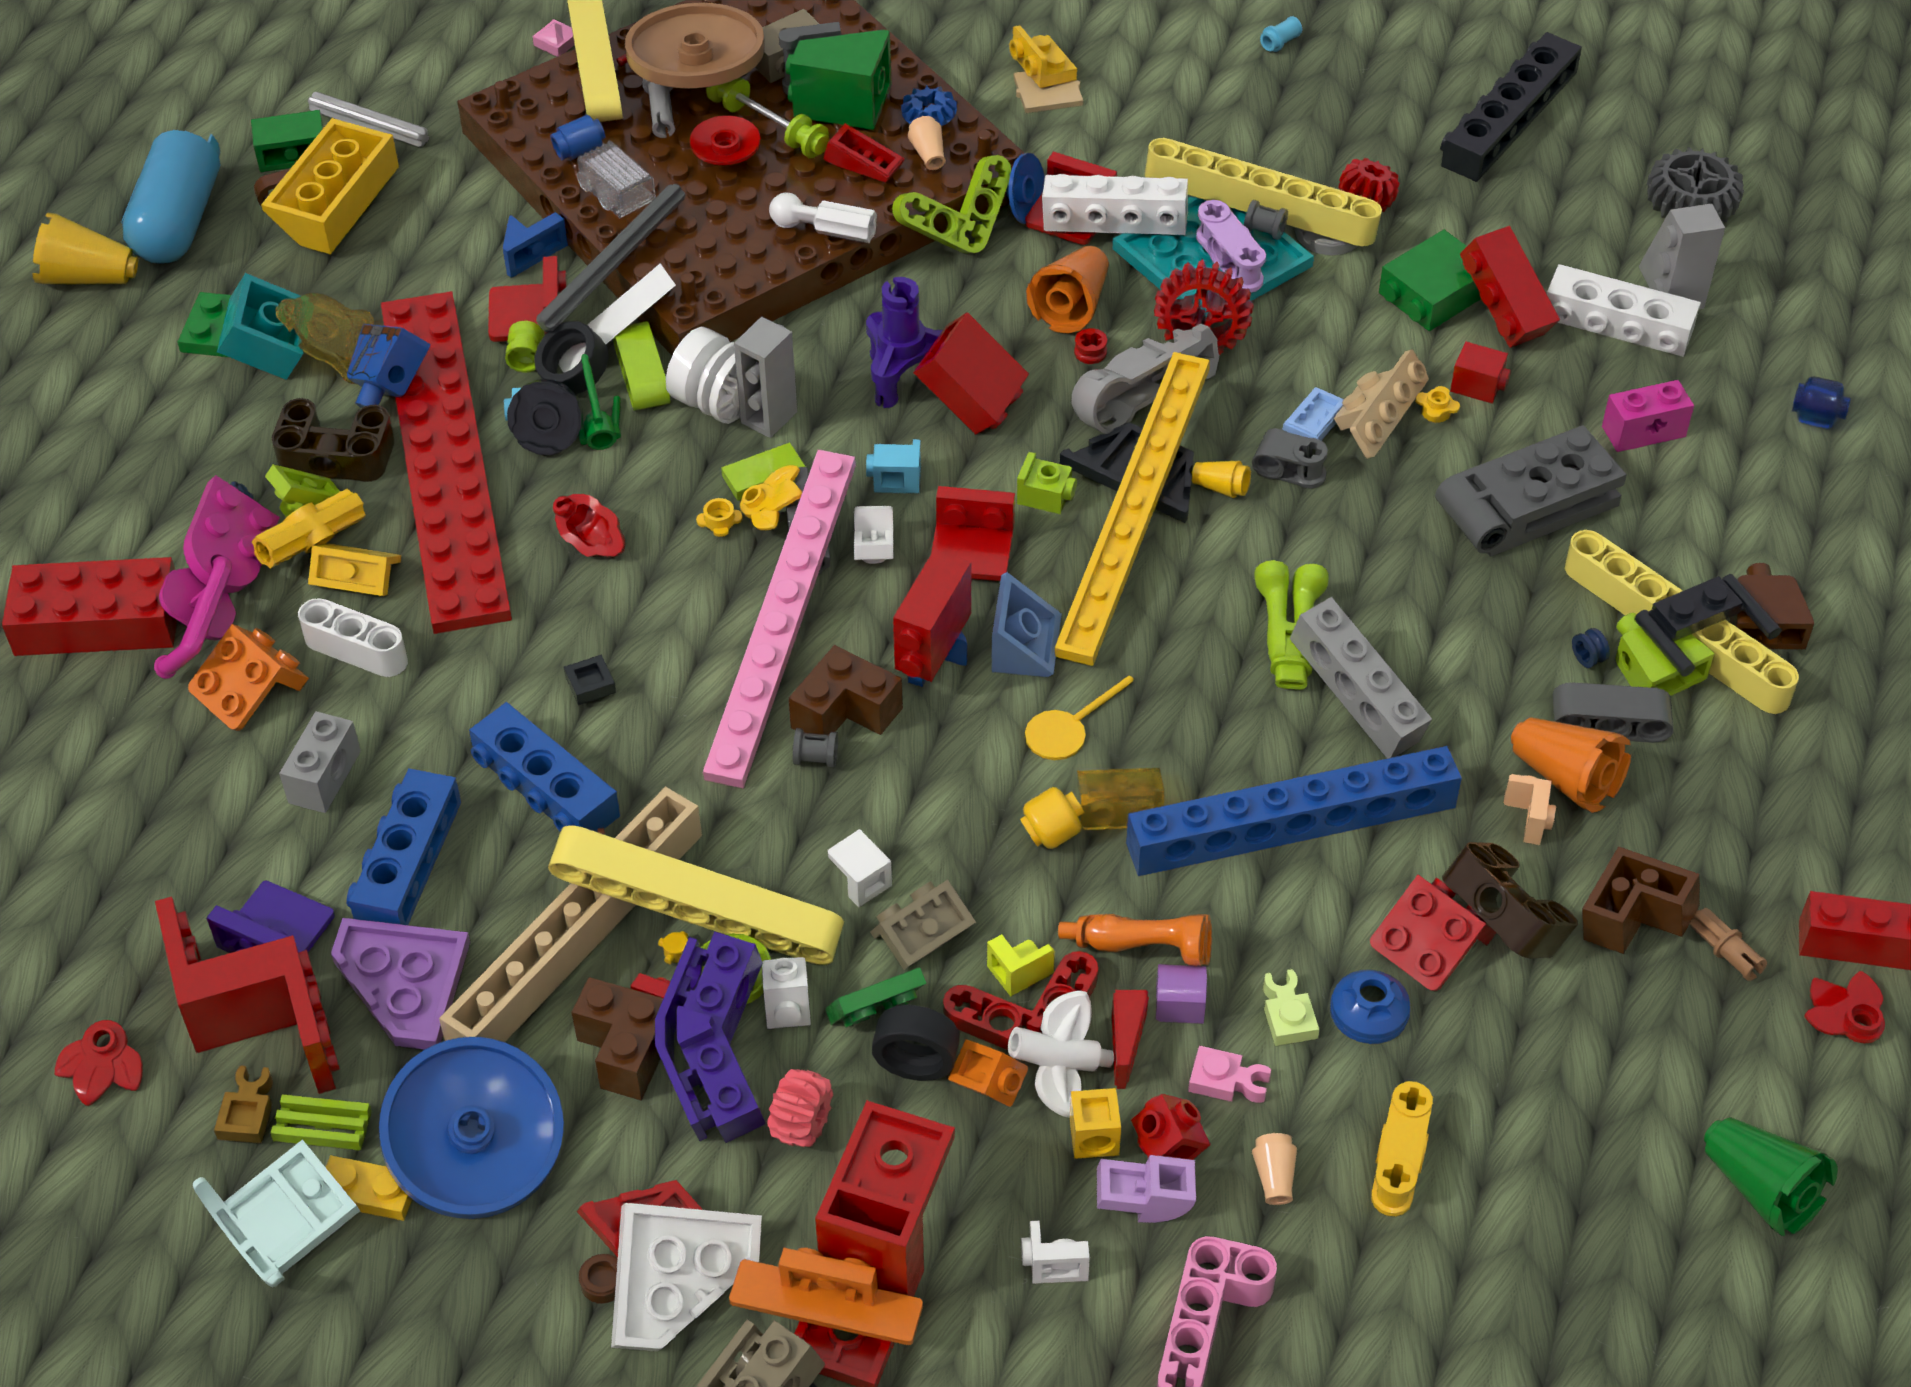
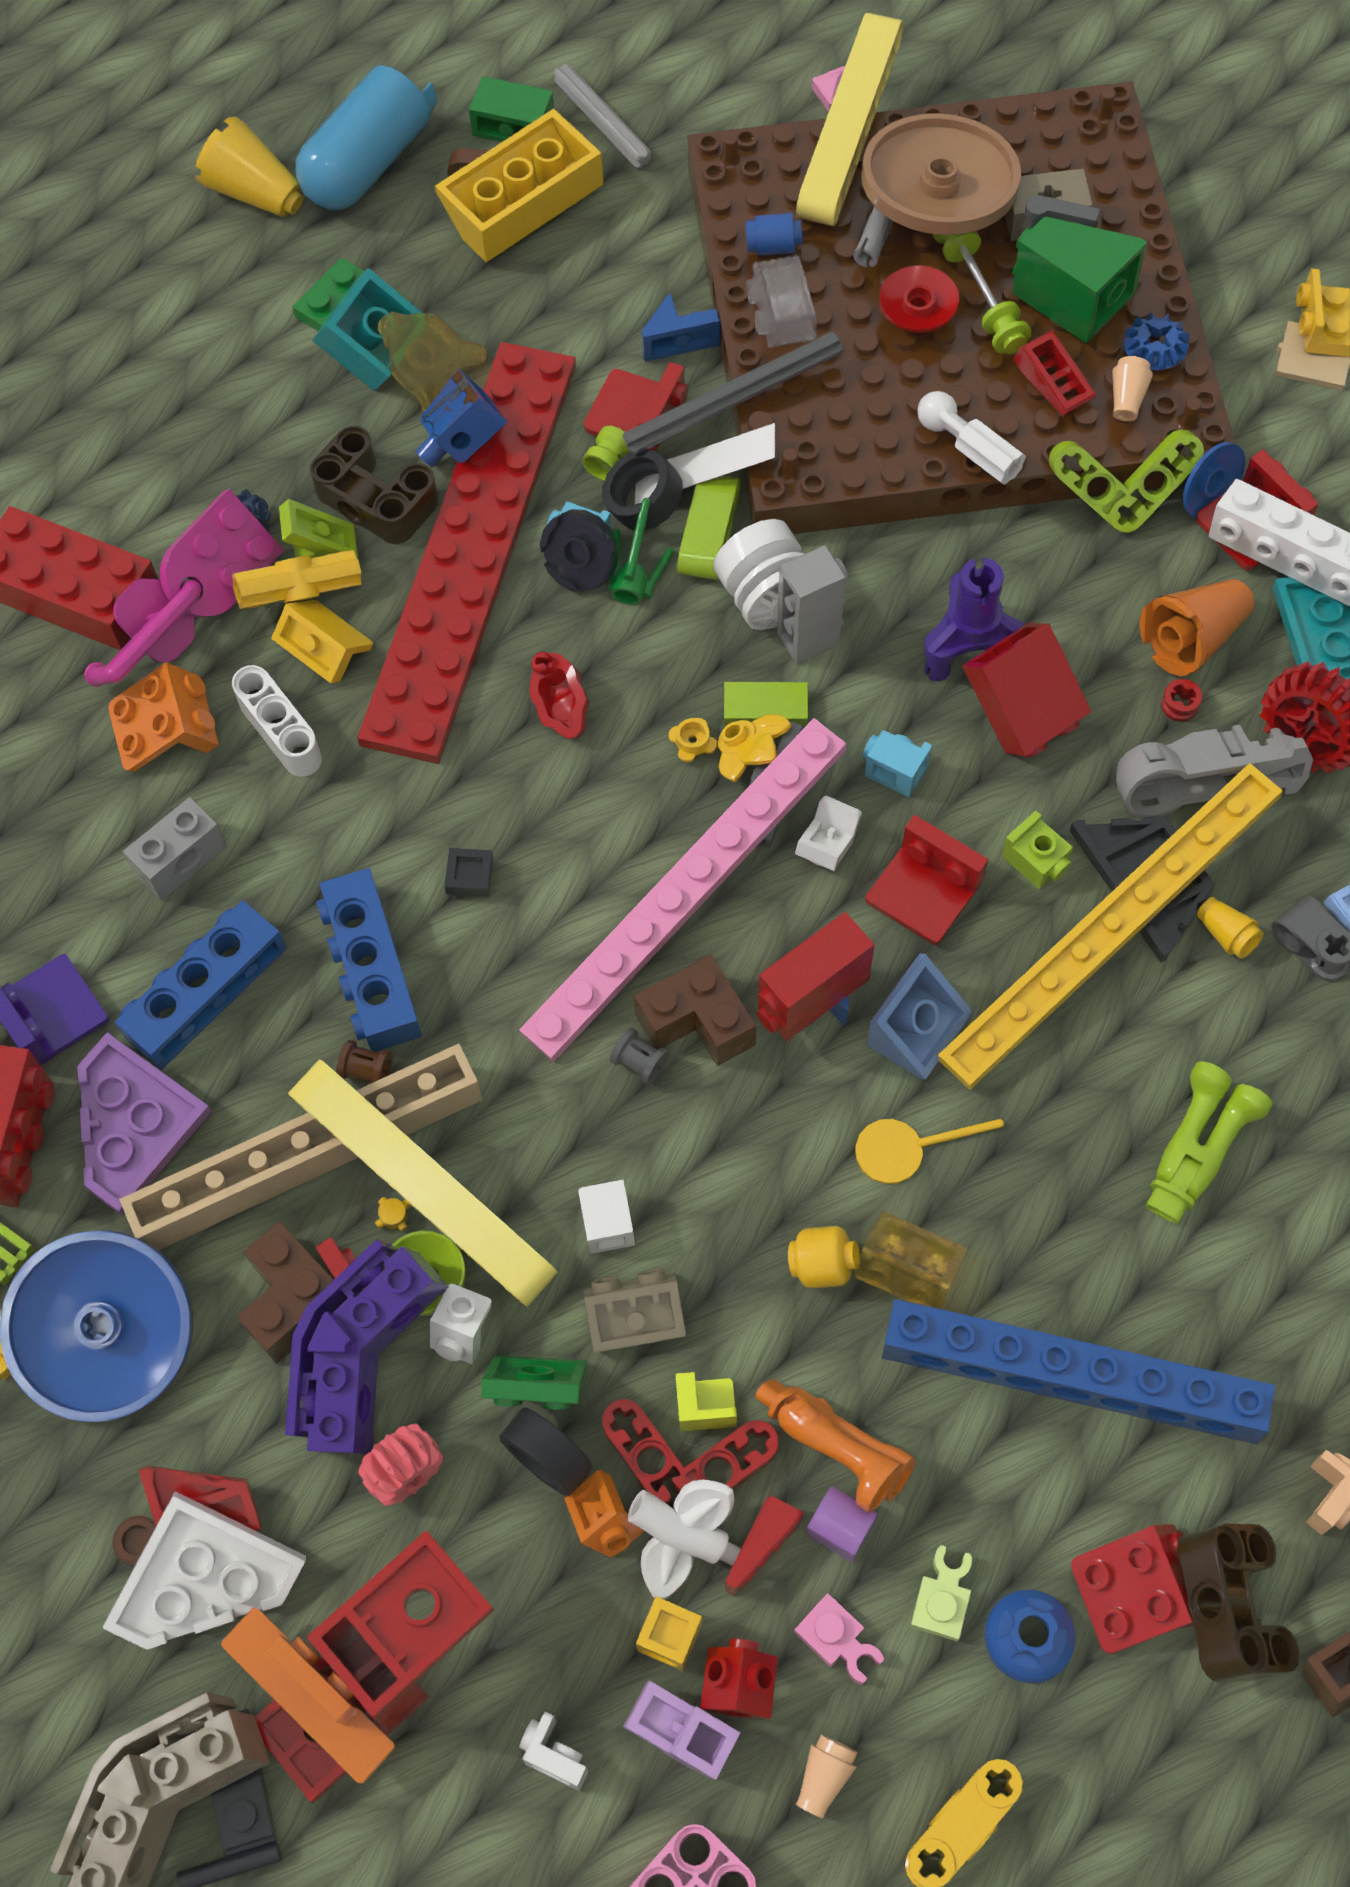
camera: 30 degrees right, 15 degrees up
(1360, 678) = (1230, 1253): light grey brick -> none

